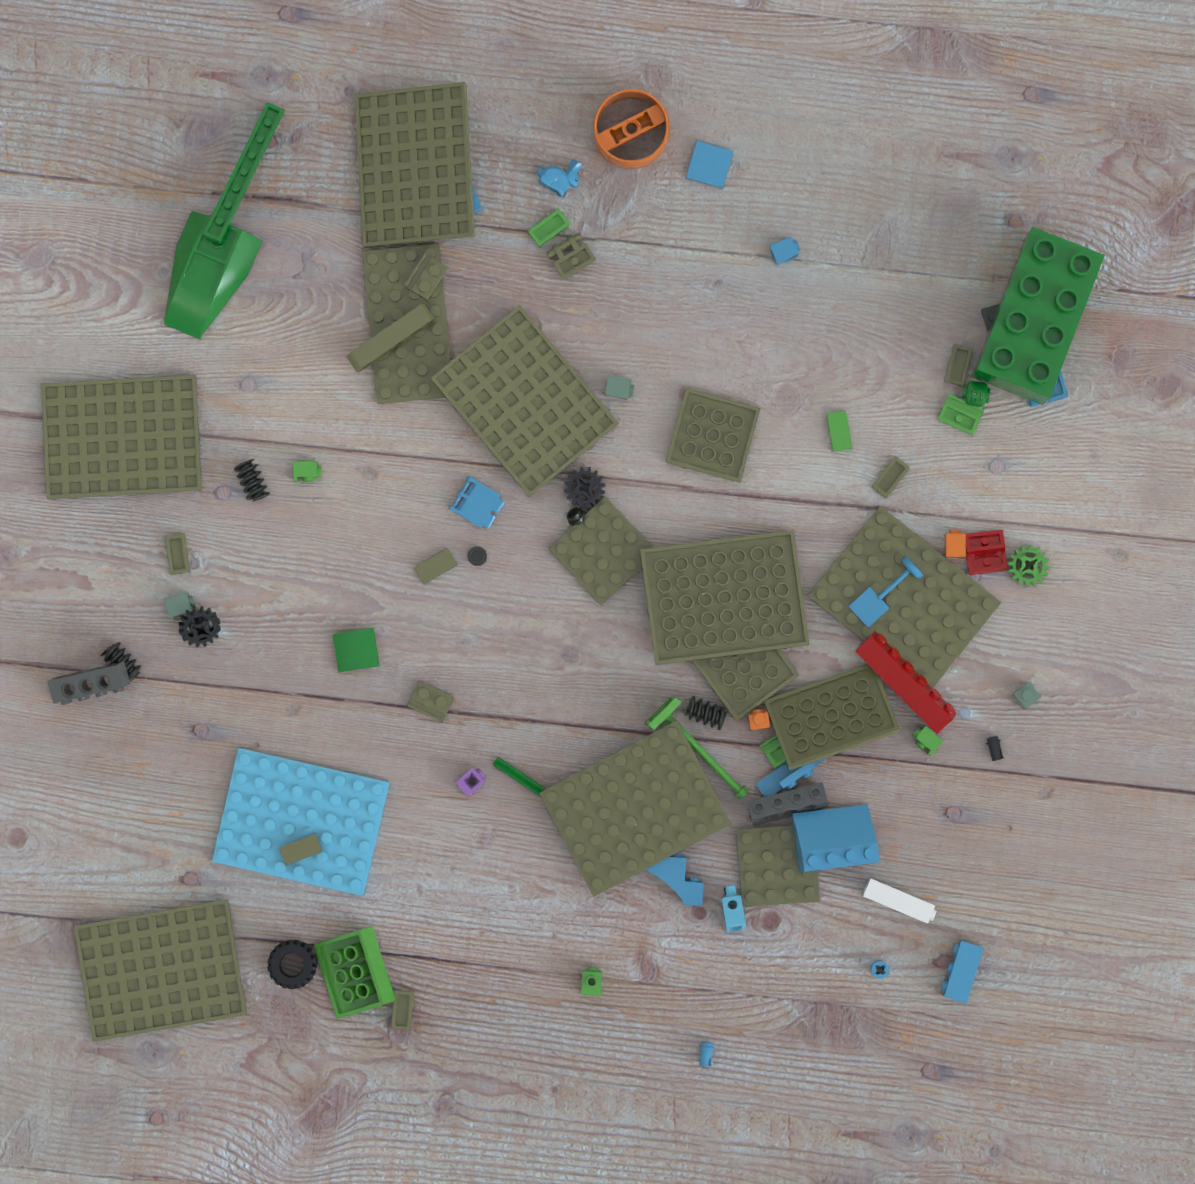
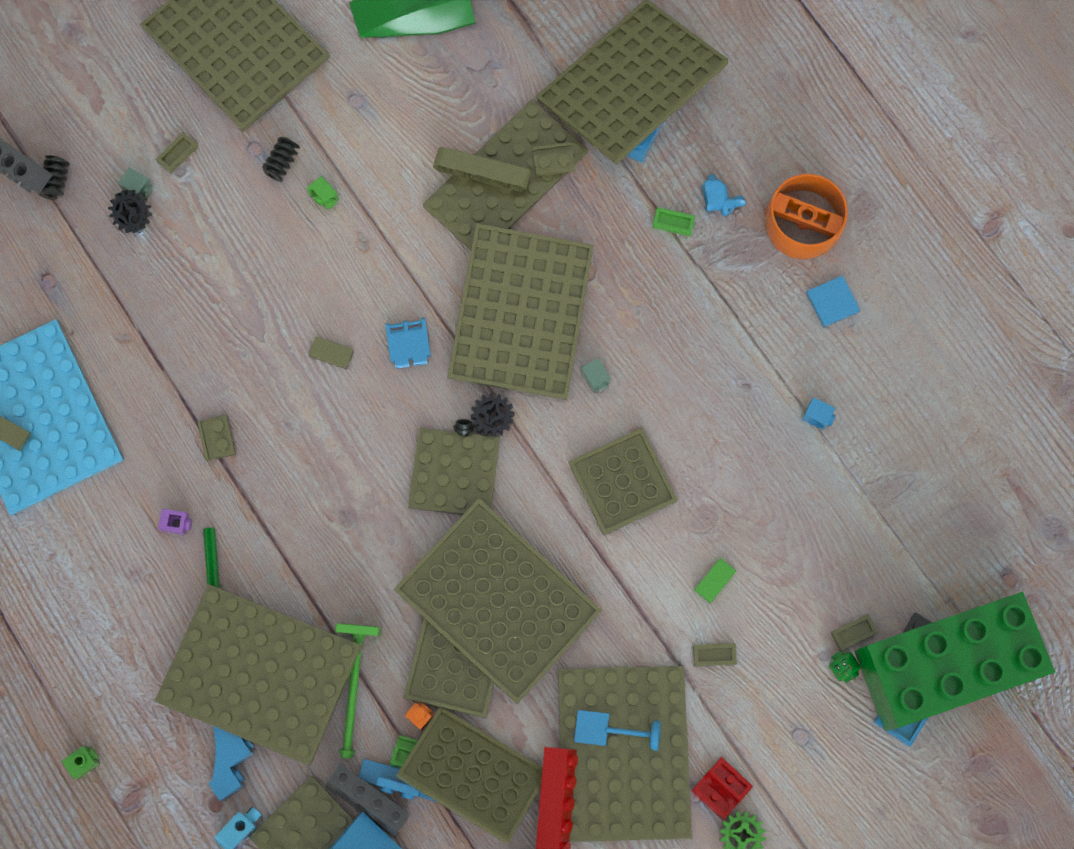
camera: 45 degrees right, 10 degrees down
(356, 650) = (210, 345): green slope -> none
(477, 556) = (366, 377): pearl dark grey plate -> none
(575, 260) = (664, 260): olive plate -> none
(706, 712) = (389, 667): pearl dark grey piece -> none
(955, 544) = (706, 756): orange brick -> none
(960, 415) = (815, 668): bright green plate -> none

